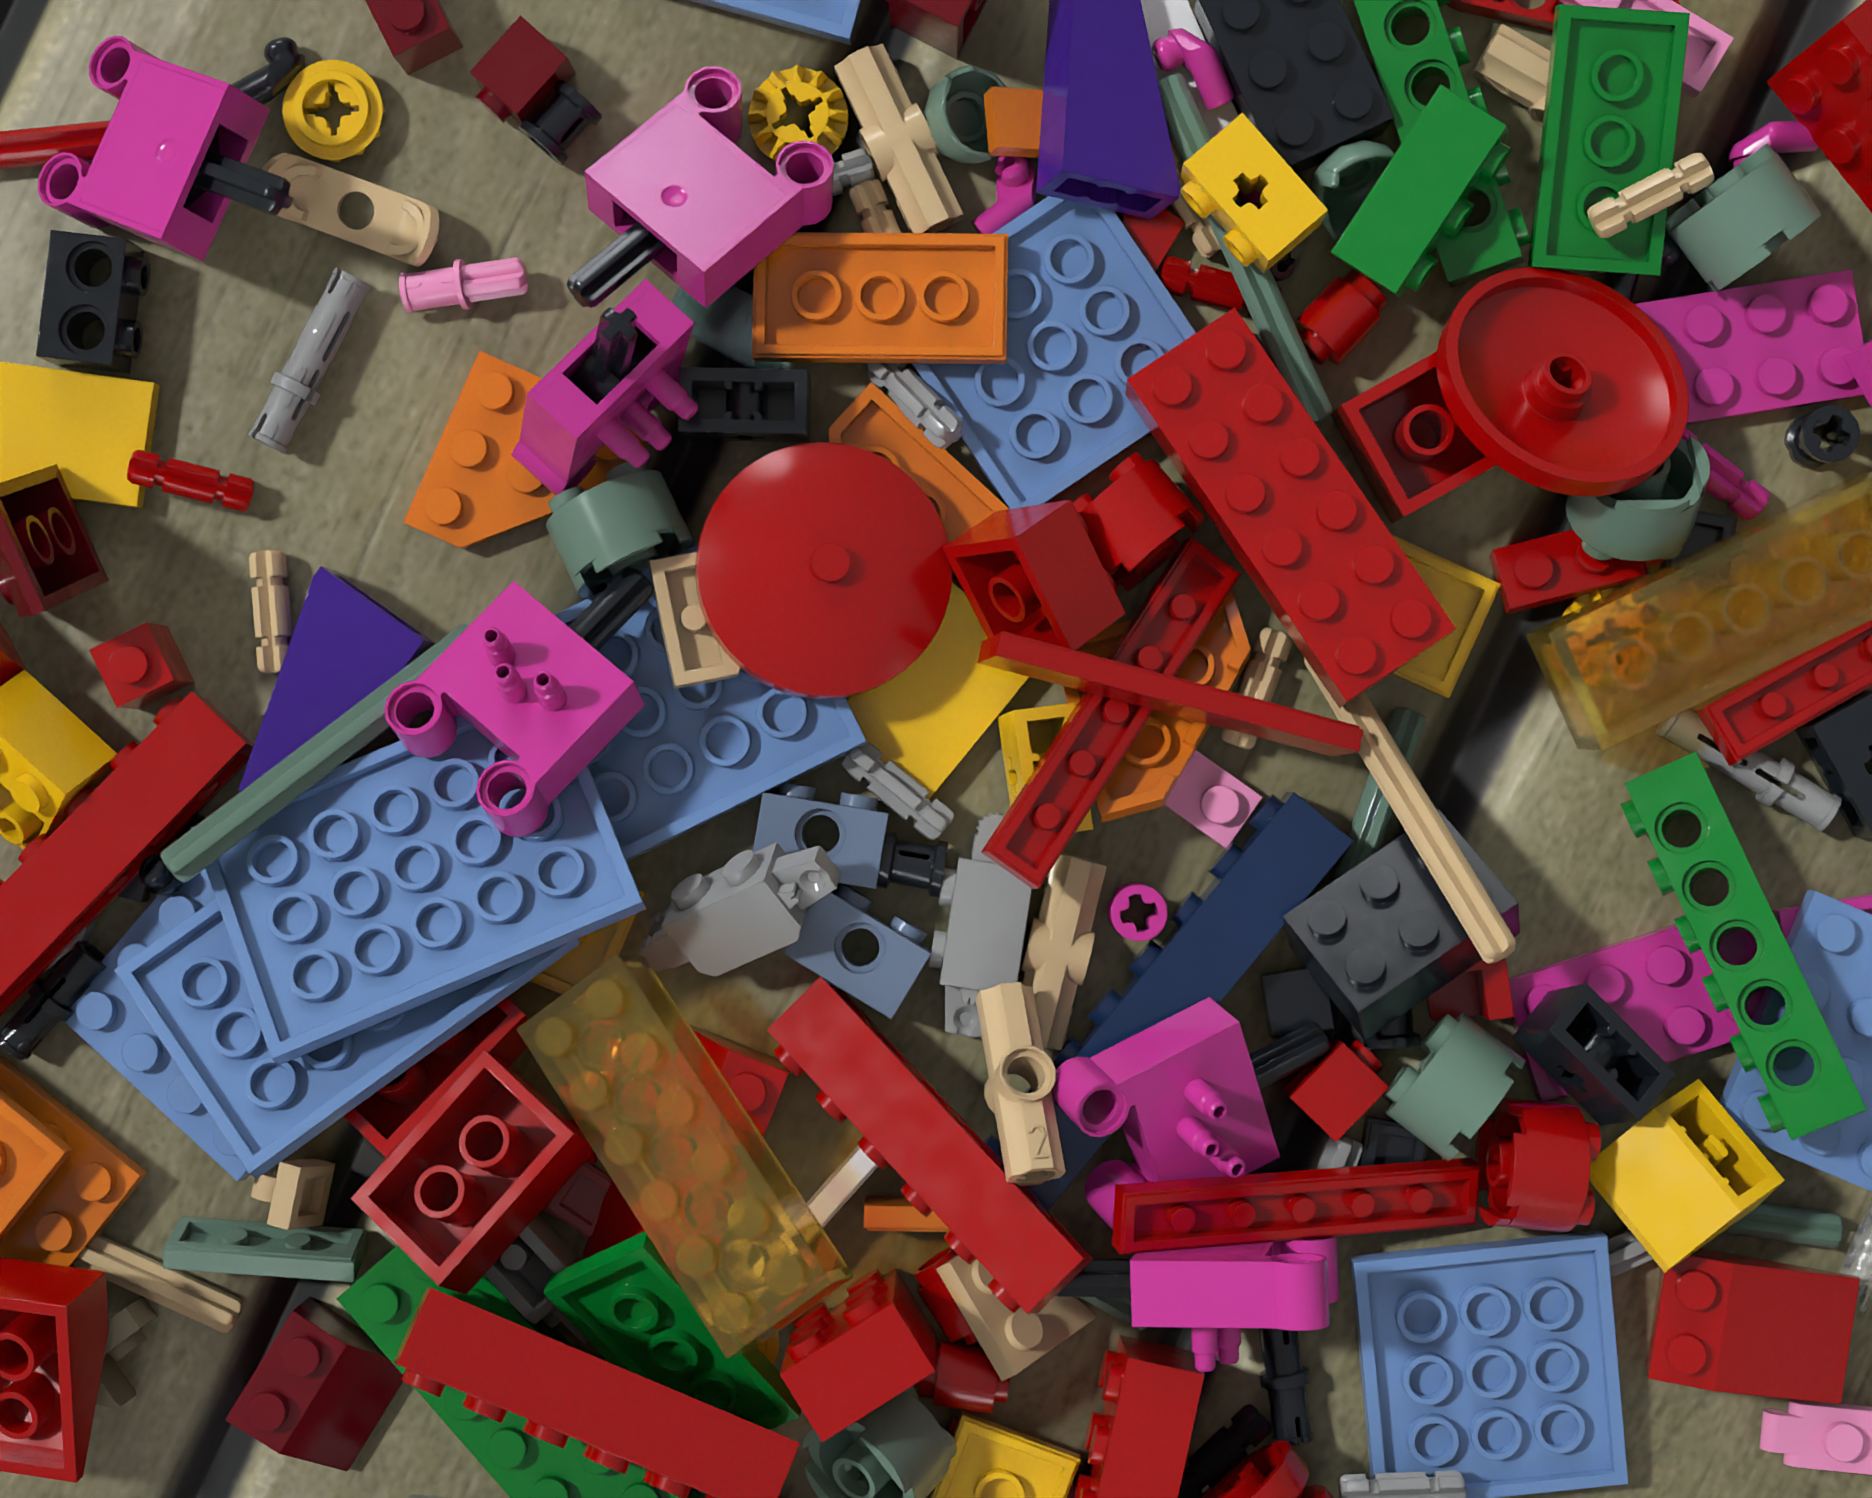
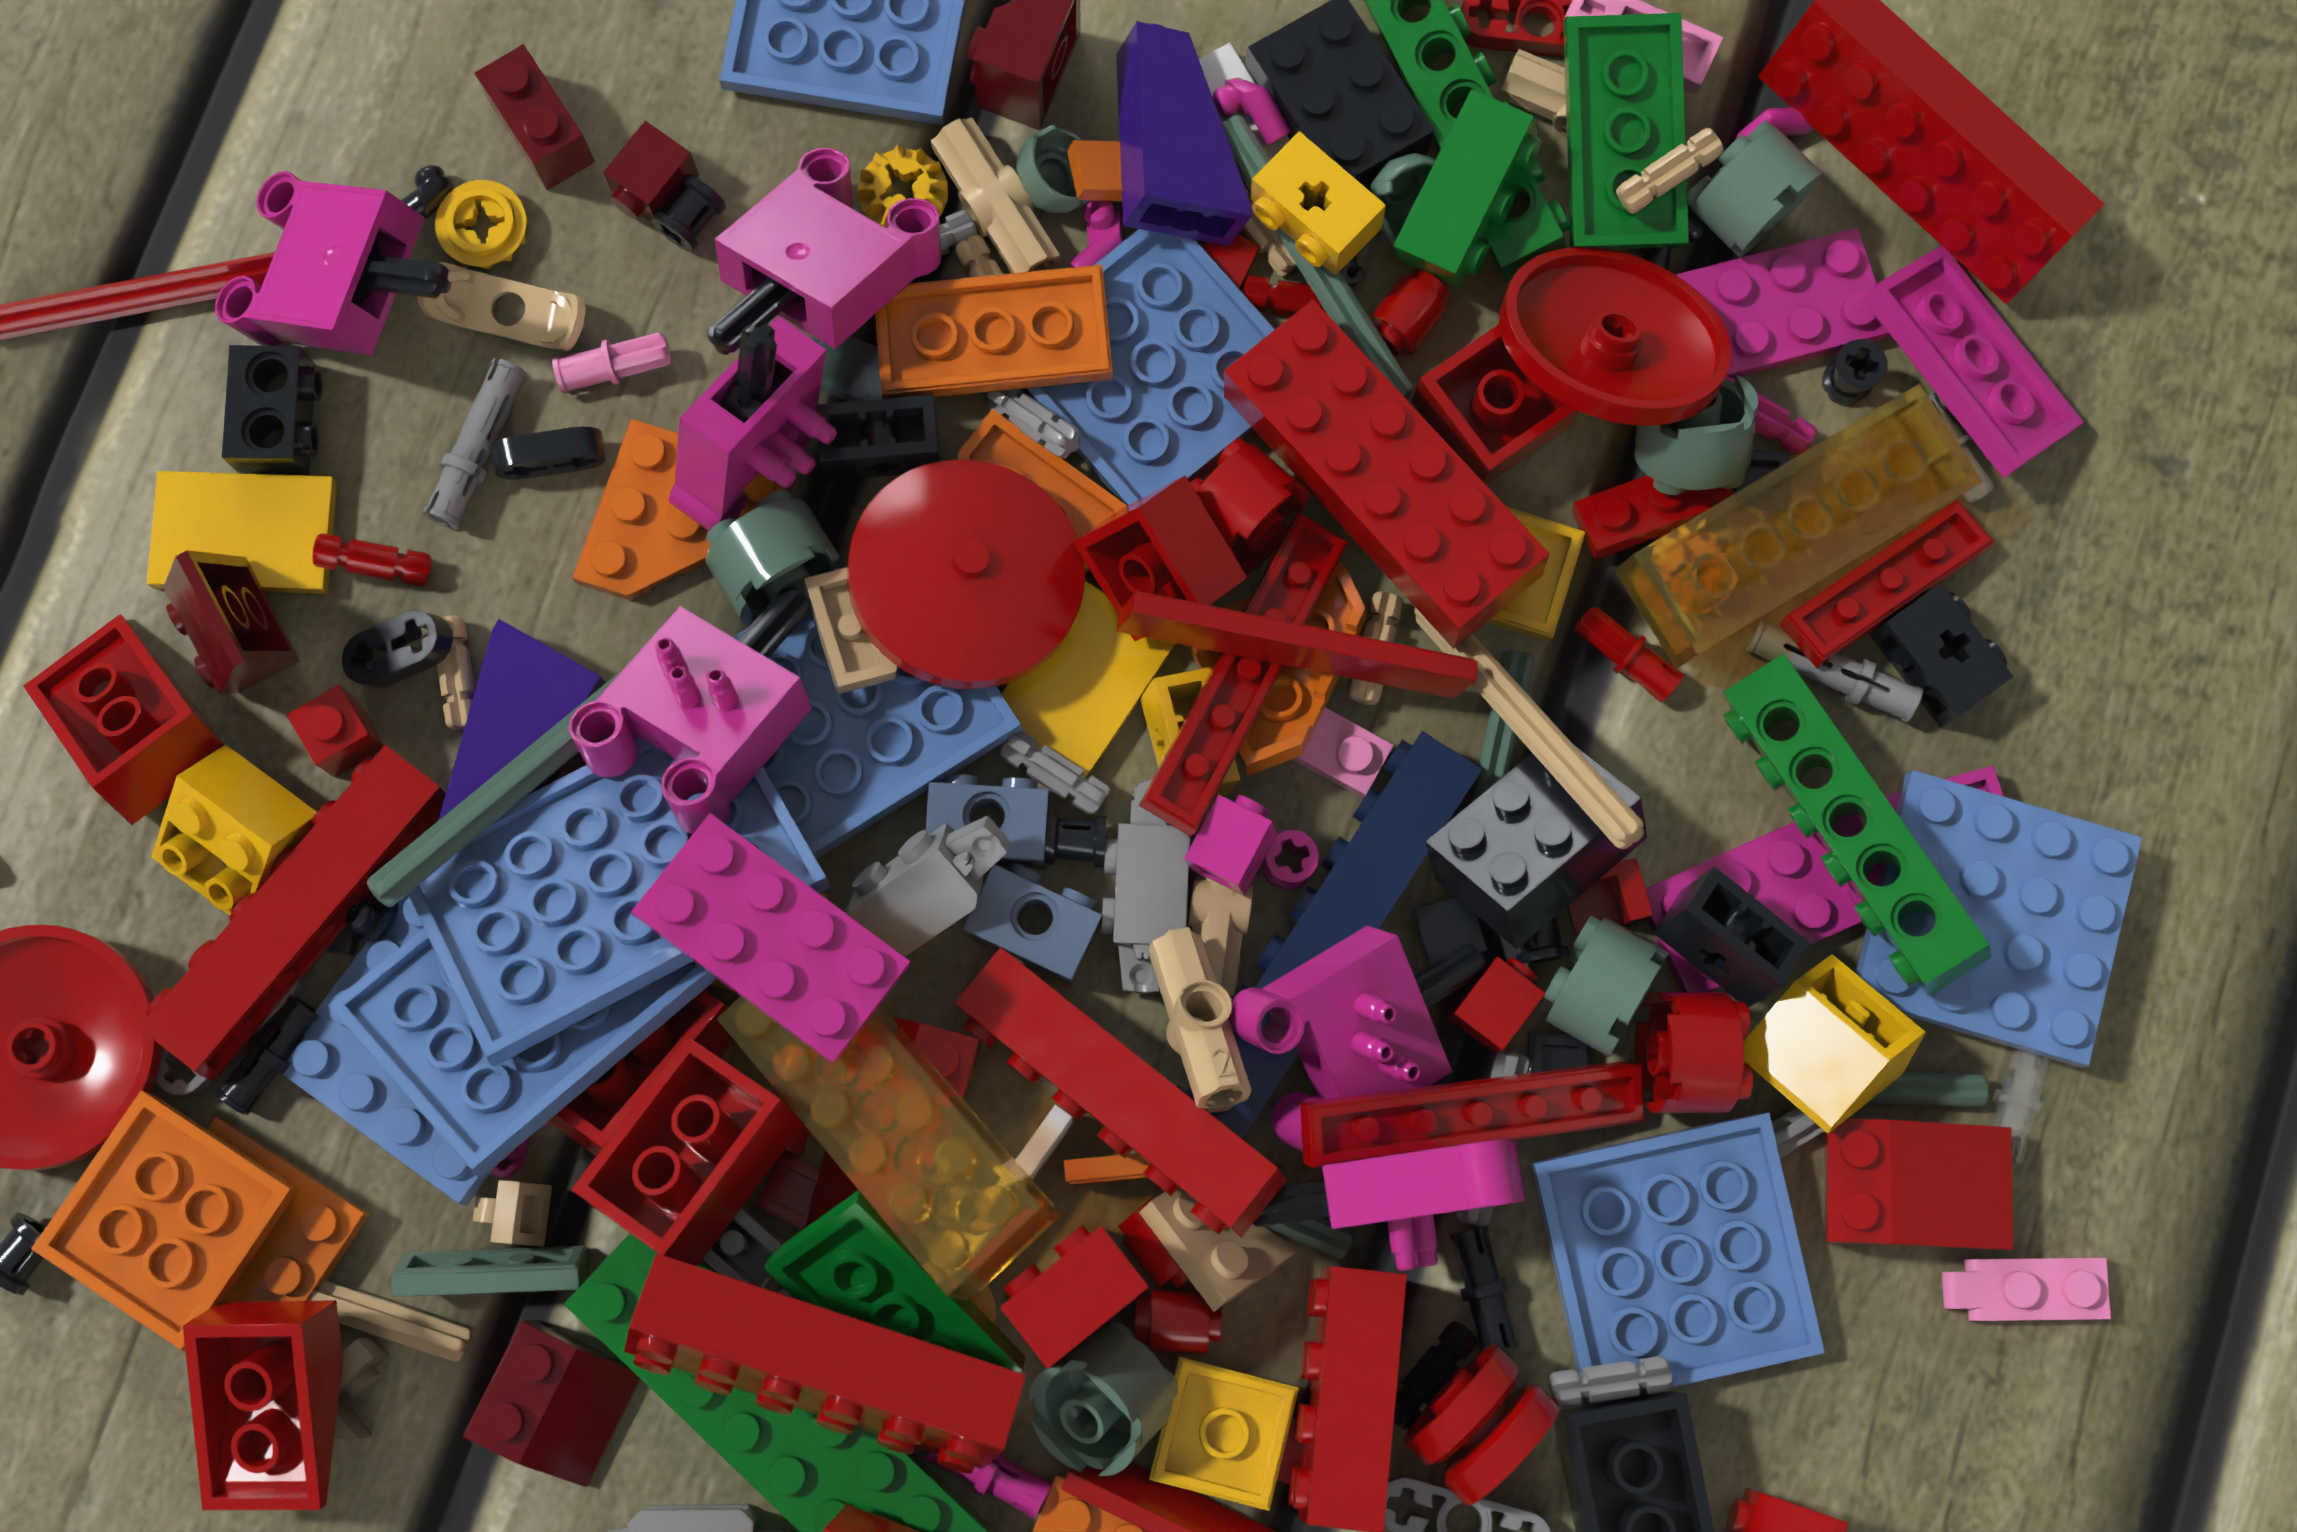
camera: 10 degrees left, 10 degrees down
(208, 570) = (393, 638): none -> black beam
(387, 380) = (548, 453): none -> black beam
(578, 965) = (771, 938): none -> dark pink plate
(1076, 897) = (1232, 843): none -> dark pink brick
(1530, 725) = (1629, 654): none -> red axle

